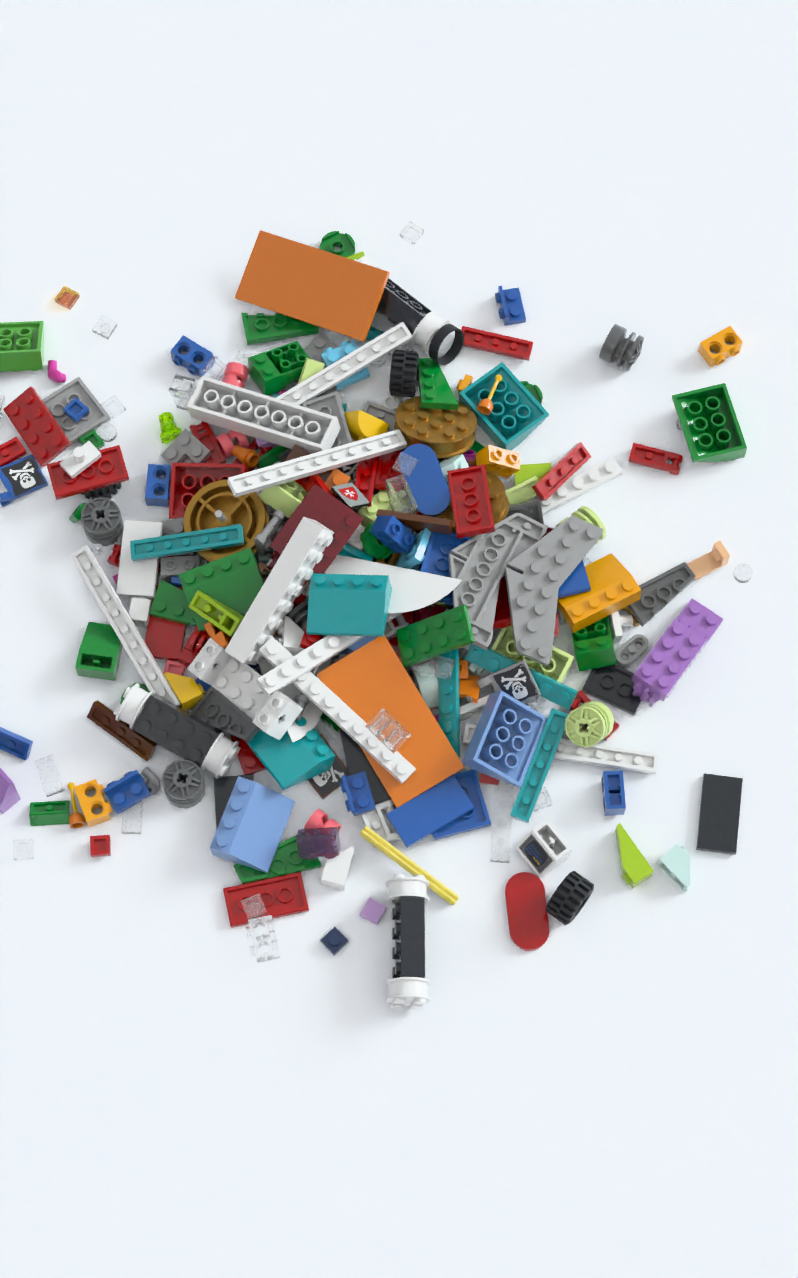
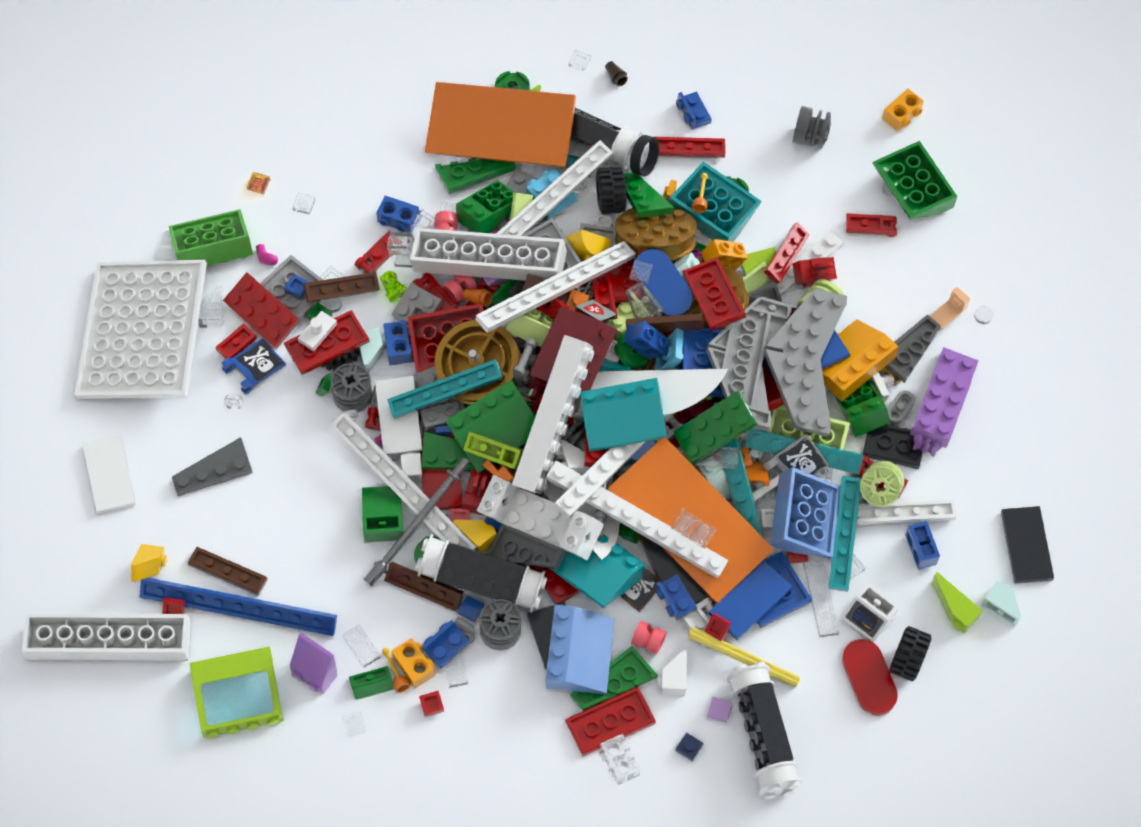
camera: 15 degrees left, 5 degrees down
(86, 702) = (381, 566): none -> flat silver bar
(118, 419) = (341, 287): none -> reddish brown plate
(133, 488) = (373, 350): none -> light aqua slope
(160, 393) = (377, 255): none -> red plate
(161, 761) = (470, 608): none -> blue tile
(253, 906) = (602, 729): clear plate -> none
(318, 843) = (651, 653): clear purple brick -> none
(390, 831) = (718, 627): none -> red plate
(443, 254) = (616, 74): none -> dark brown cone
(583, 494) = (811, 270): none -> red brick

